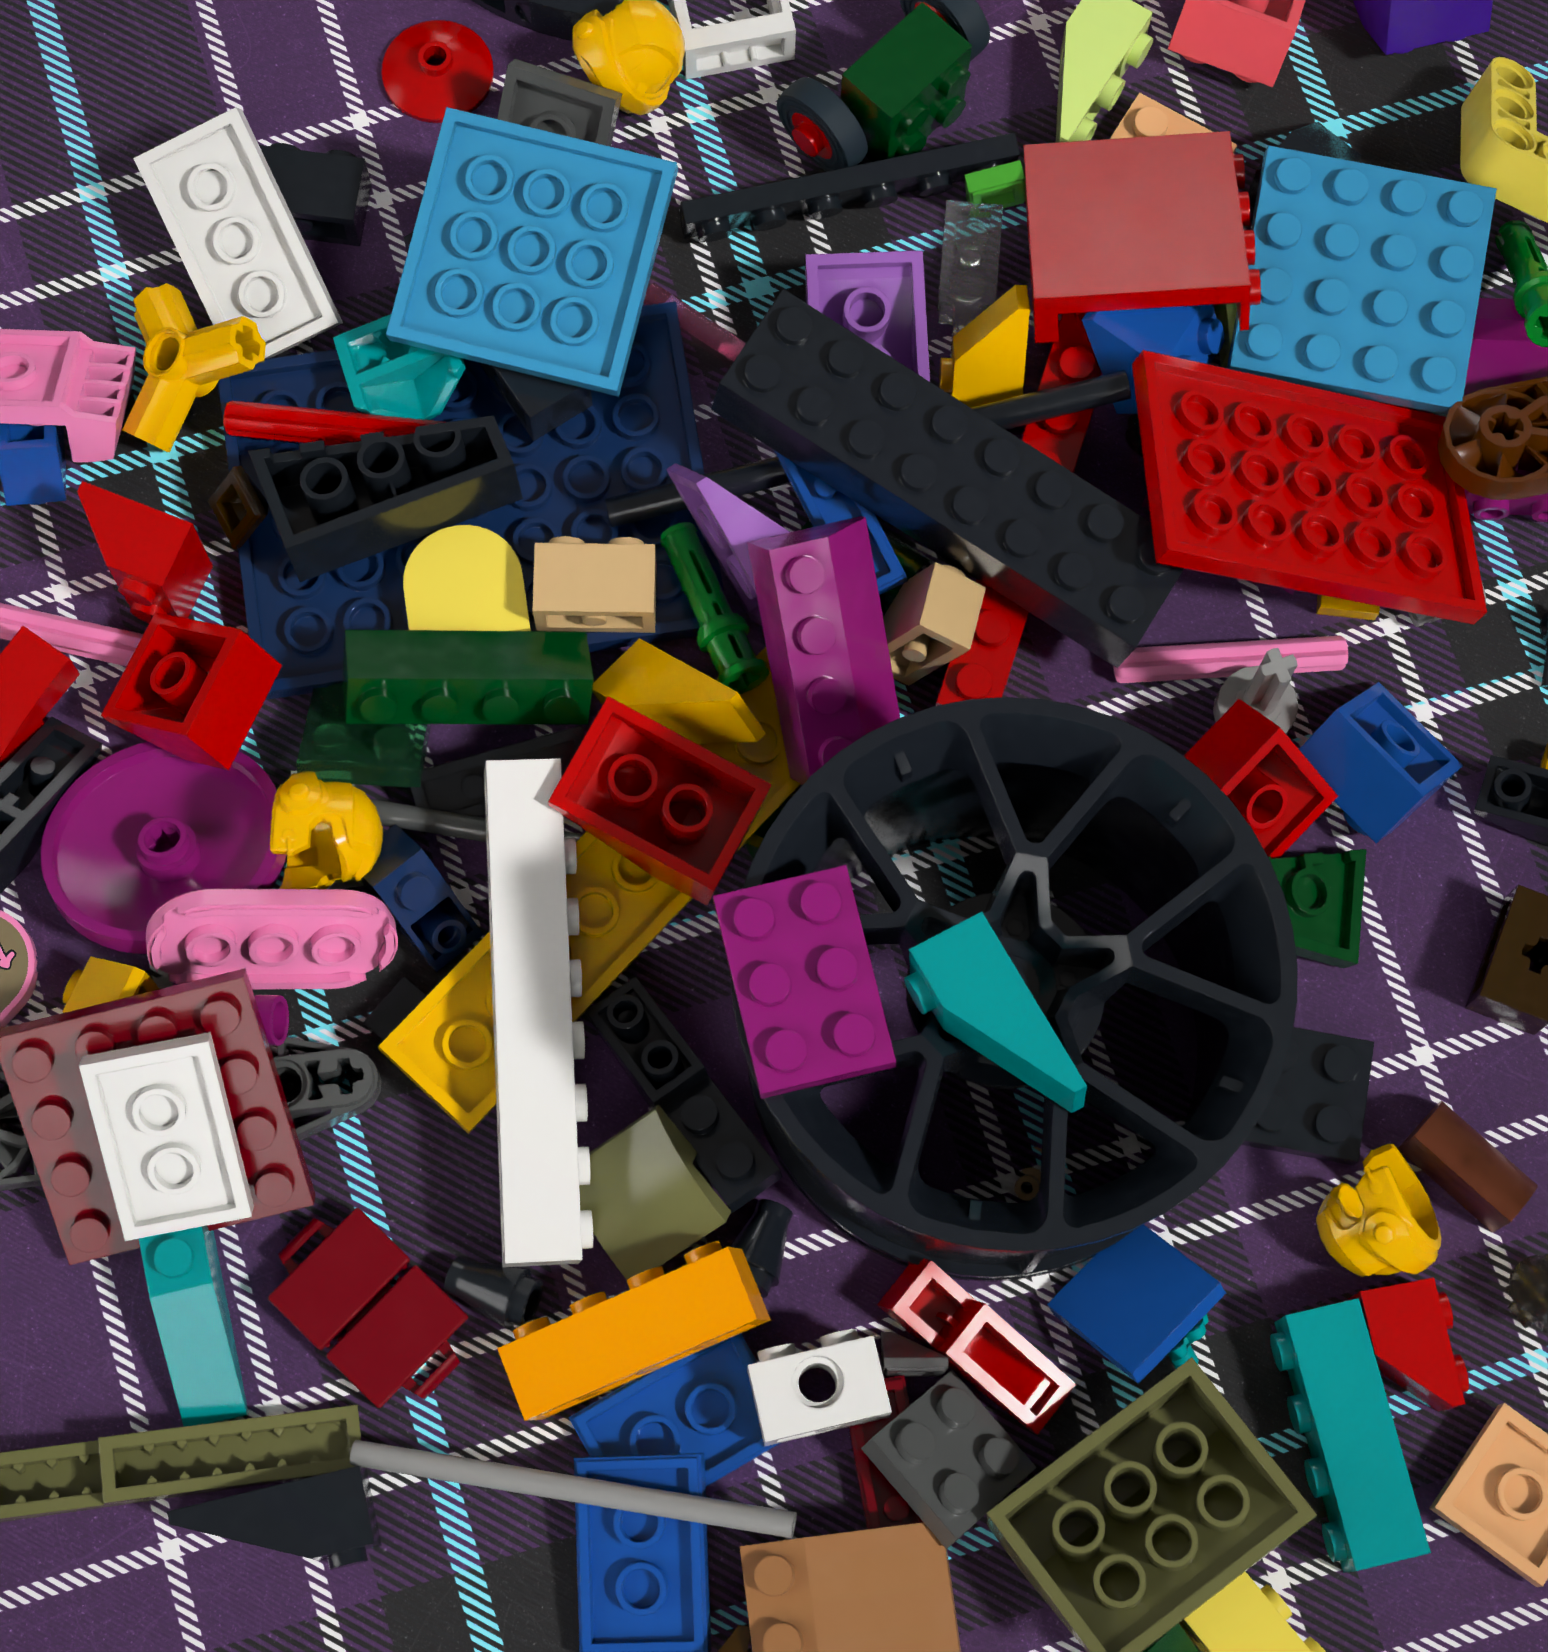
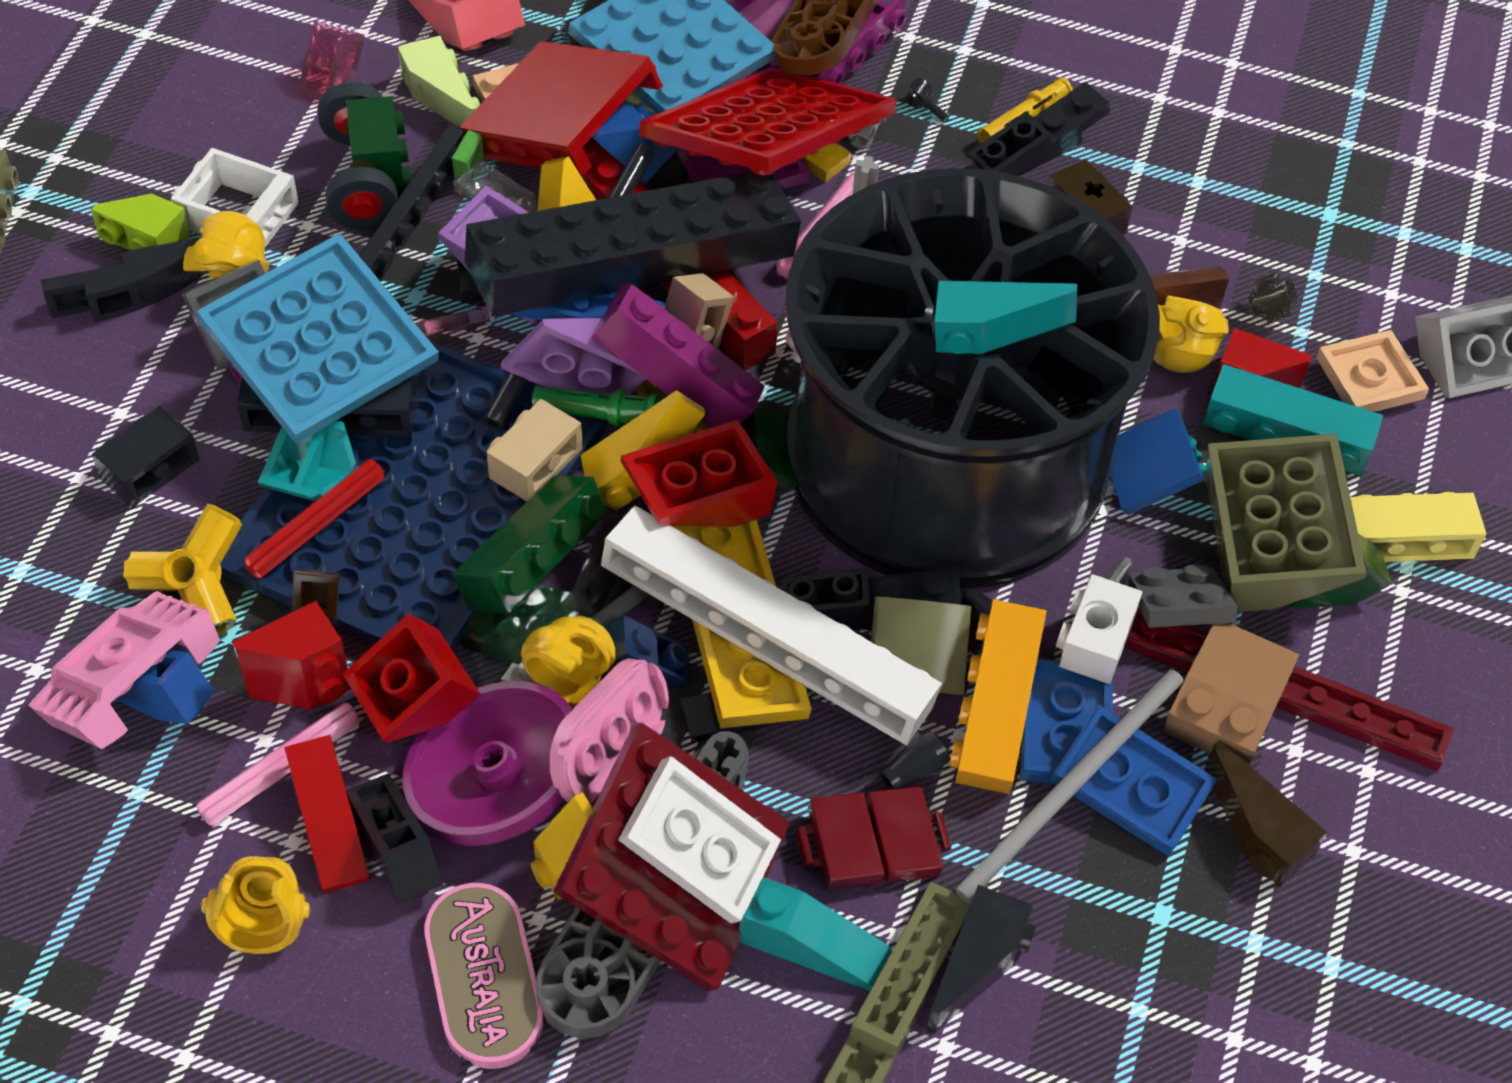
camera: 55 degrees left, 20 degrees down
(238, 232) = (138, 487): white plate -> none
(383, 490) = (379, 510): black wedge -> none
(426, 89) = (131, 359): red dish -> none
(465, 583) = (469, 512): light yellow tile -> none
(804, 981) = (908, 388): magenta plate -> none
(977, 1344) = (1096, 552): red slope -> none

